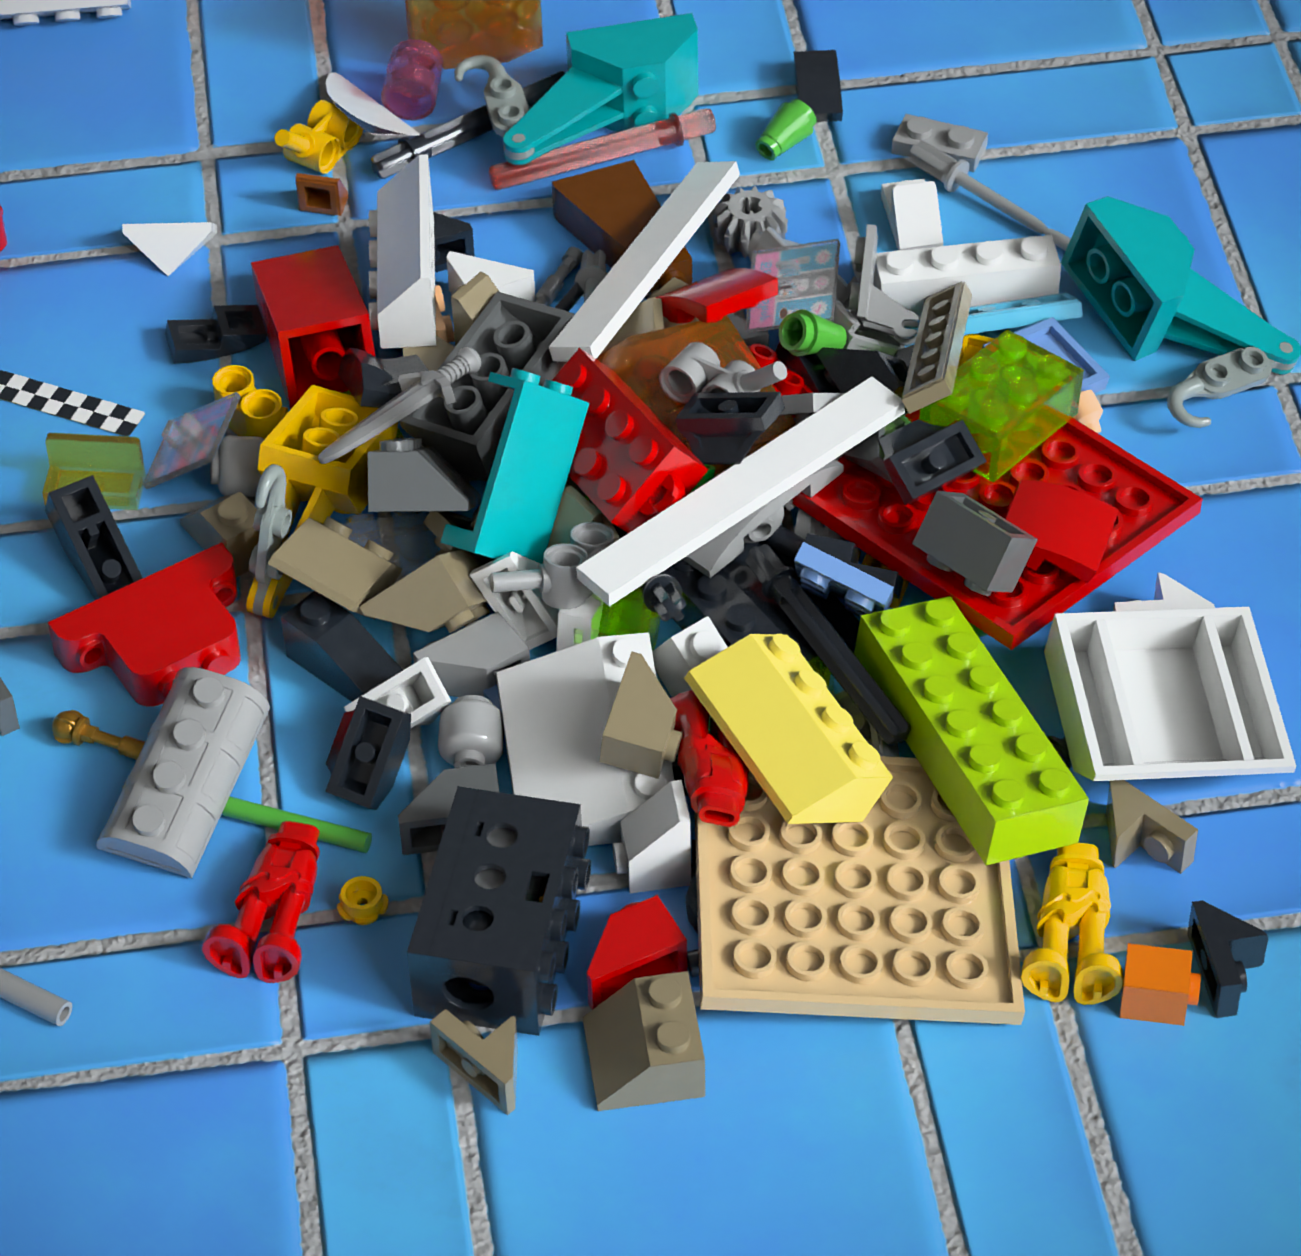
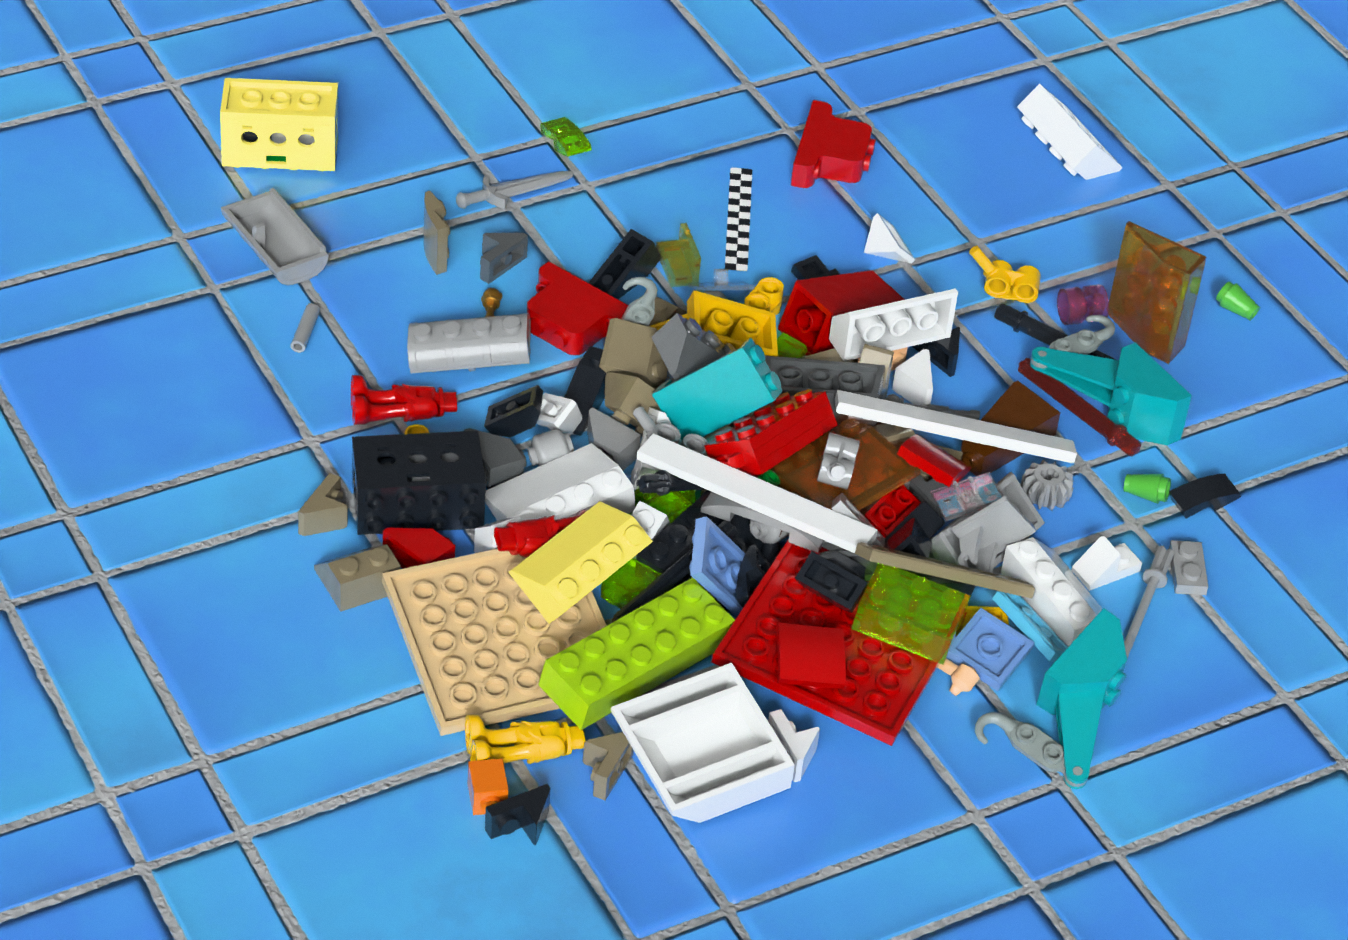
camera: 65 degrees right, 5 degrees down
(273, 817) = (463, 400): bright green bar -> none
(321, 194) = (965, 297): dark orange slope -> none
(364, 109) = (1041, 289): white sticker -> none
(373, 379) = (794, 338): black slope -> none
(416, 391) = (780, 352): light grey sword -> none
(640, 723) = (557, 489): dark tan slope -> none
(727, 424) = (800, 469): black slope -> none
(807, 333) = (923, 508): bright green cone -> none
(974, 543) = (766, 608): dark grey brick -> none

